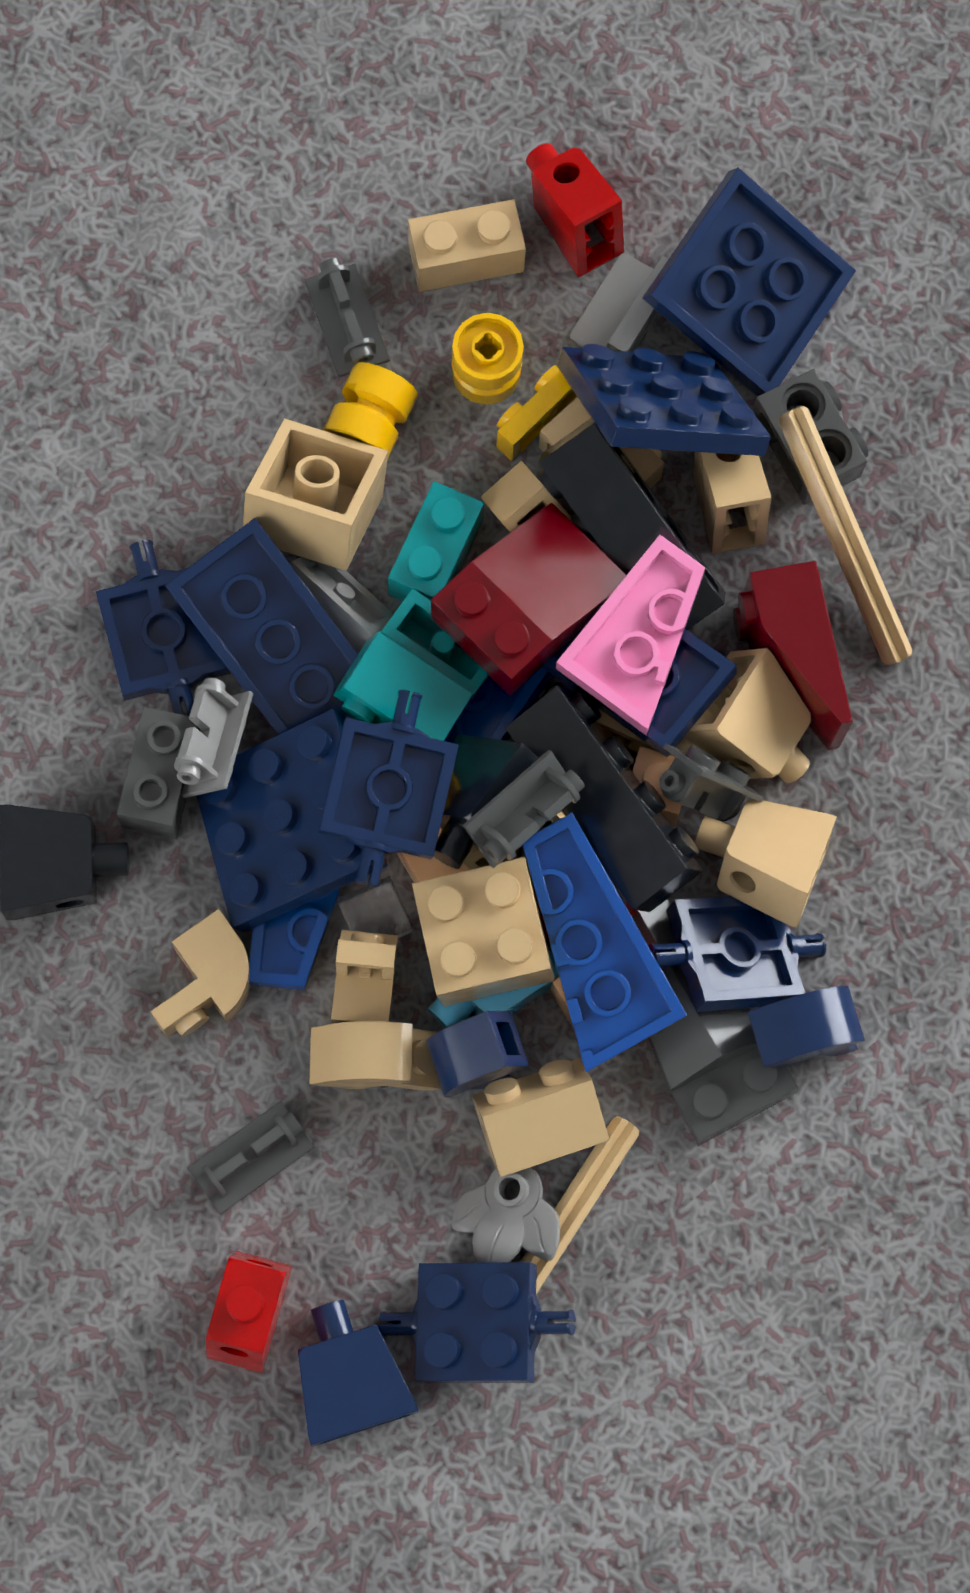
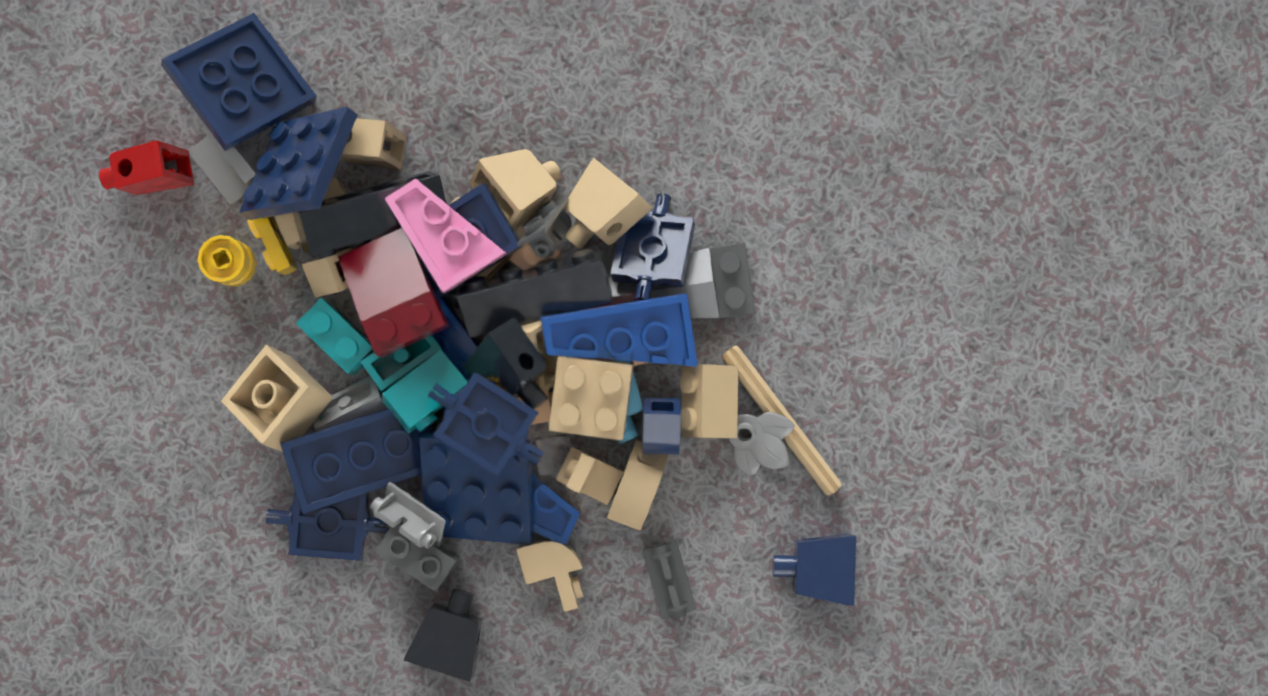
camera: 65 degrees left, 10 degrees up
(247, 1310) = (758, 612): red torso -> none
(345, 316) = (167, 337): dark grey hinge -> none
(373, 406) = (233, 343): yellow wheel -> none
(466, 245) = (148, 246): tan brick -> none
(476, 1322) = (816, 482): dark blue plate -> none
(523, 808) = (528, 347): dark grey hinge -> none
(790, 617) = (463, 139): dark red slope -> none
(806, 1027) = (715, 225): dark blue brick -> none
(834, 433) = (350, 91): dark grey brick -> none
(845, 535) = (420, 85): tan axle -> none

